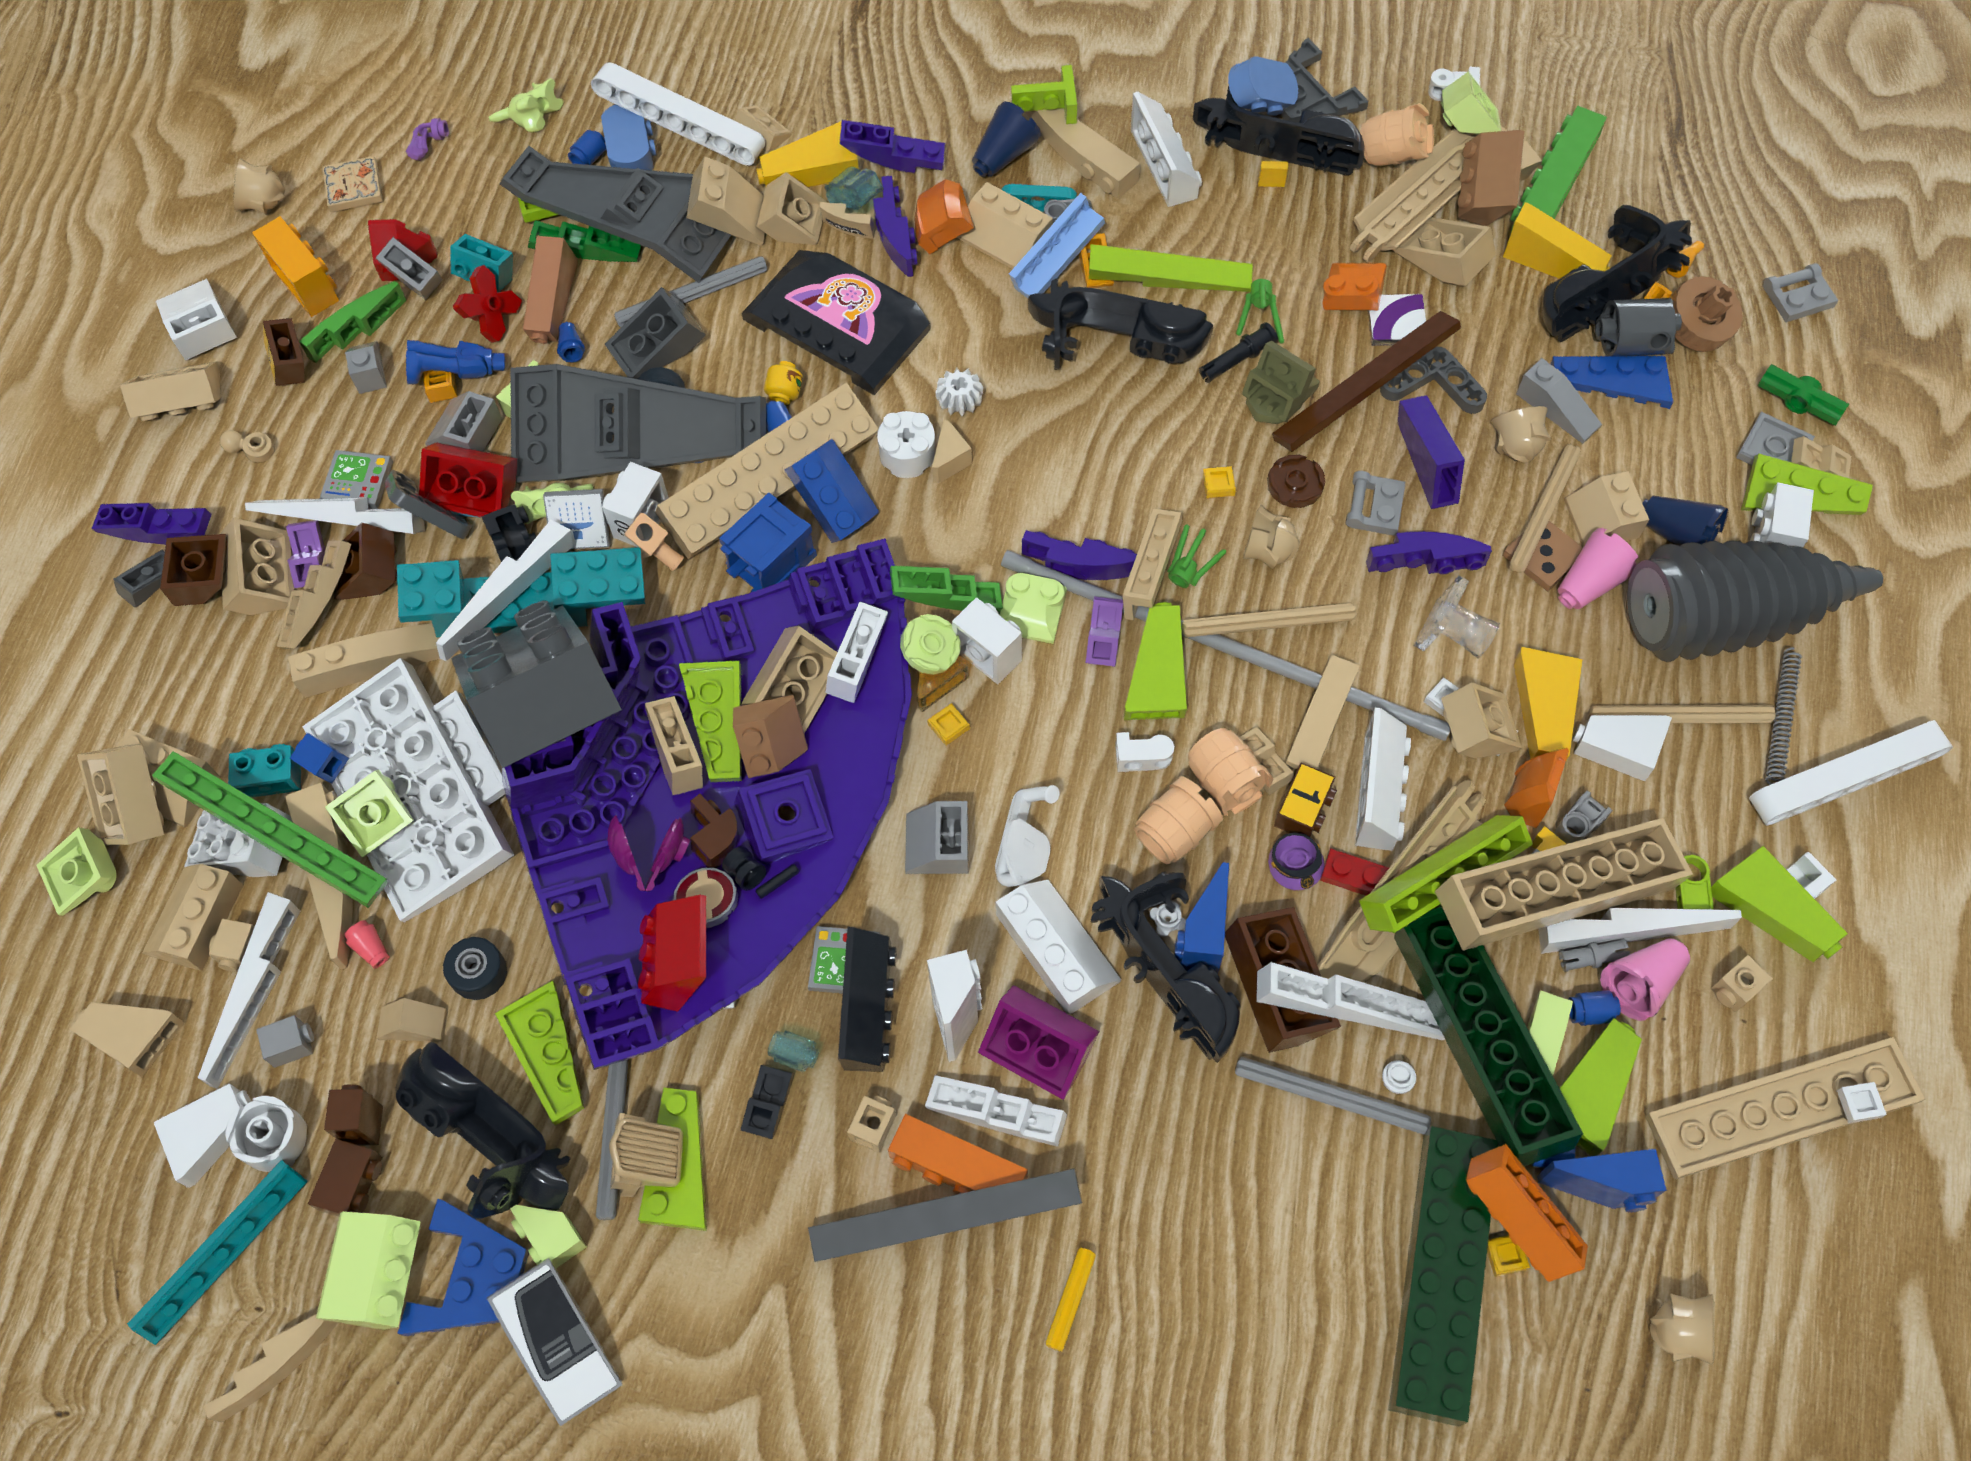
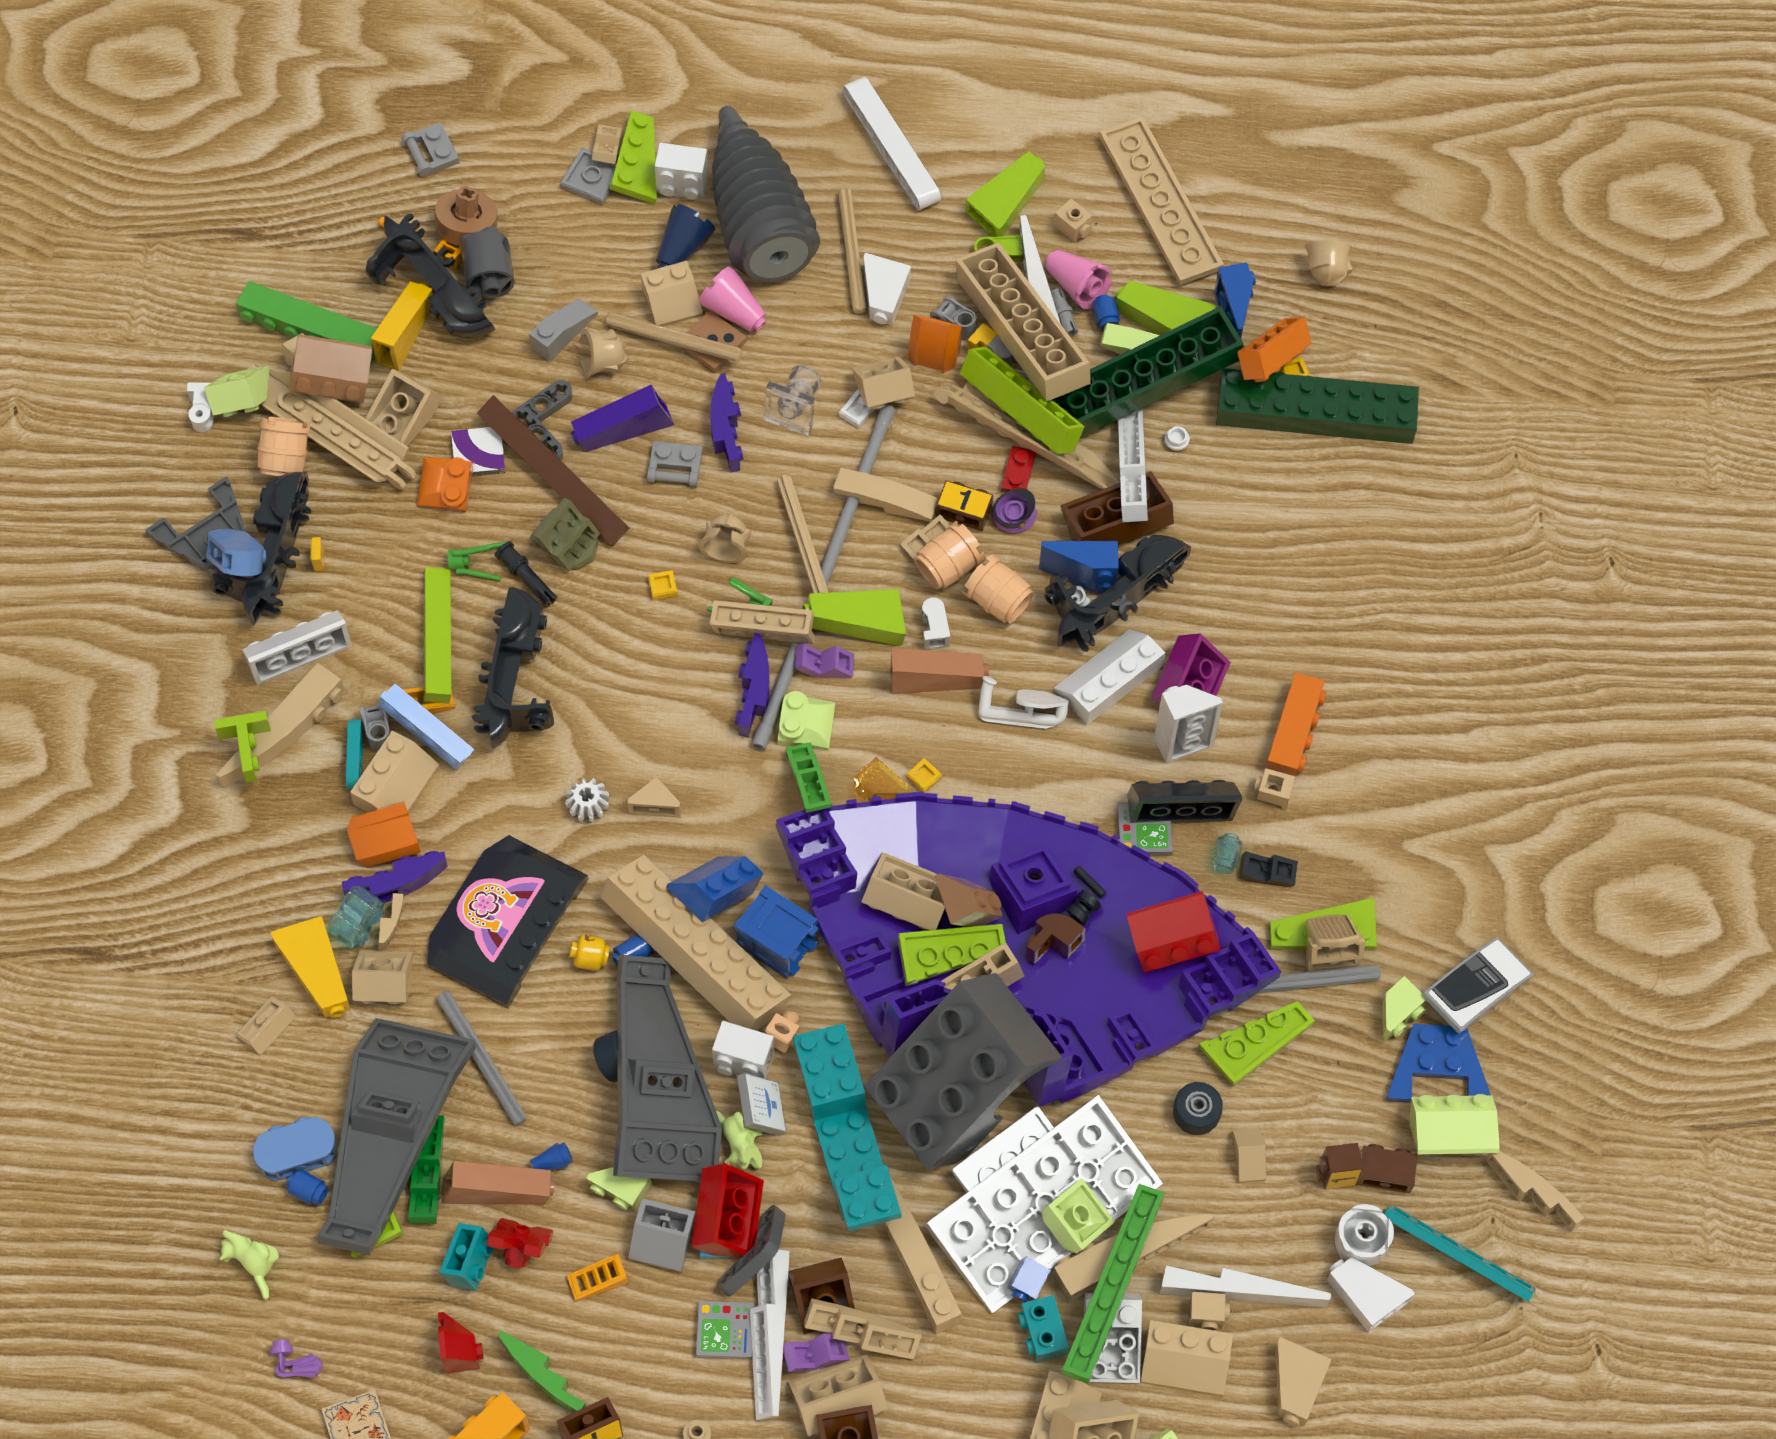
camera: 100 degrees left, 0 degrees up
(285, 1041) = (1283, 1246): light grey brick -> none
(366, 367) = (590, 1350): light grey slope -> none
(367, 943) = (1189, 1201): coral cone -> none
(409, 268) = (486, 1317): light grey slope -> none
(453, 1100) = (1318, 1085): black piece -> none
(466, 360) = (582, 1247): blue piece -> none
(505, 586) = (846, 1143): white slope -> none
(509, 531) = (782, 1162): black cylinder -> none
(655, 335) = (543, 1079): dark grey slope -> none
(671, 849) = (1080, 964): magenta animal -> none
(678, 114) = (269, 1095): white beam -> none
(718, 889) = (1110, 935): tile -> none
(725, 201) = (386, 1030): tan slope -> none
(855, 652) = (885, 835): white slope -> none
(889, 150) = (302, 885): dark purple slope -> none
(906, 443) = (647, 822): white brick -> none
(930, 644) = (867, 781): yellowish green tile -> none
(937, 839) = (1035, 766): light grey slope -> none
(945, 1215) = (1338, 726): dark grey tile -> none
(988, 640) = (851, 743): white brick -> none
(996, 1110) = (1248, 705): white slope -> none
(1004, 139) = (290, 788): dark blue cone -> none
(1070, 1299) = (1377, 643): yellow axle -> none
(1075, 741) = (935, 671): none -> nougat slope
(1296, 481) = (656, 526): reddish brown tile -> none
(1333, 1095) = (1198, 480): light grey axle -> none
(1382, 782) = (943, 452): white slope -> none
(1547, 698) = (857, 338): yellow slope -> none
(1628, 376) = (531, 274): blue wing -> none
(1773, 774) = (826, 184): light grey piece -> none
(1803, 394) = (541, 152): green piece -> none
(1811, 875) = (982, 173): white panel -> none
(1861, 1102) = (1155, 151): white plate -> none

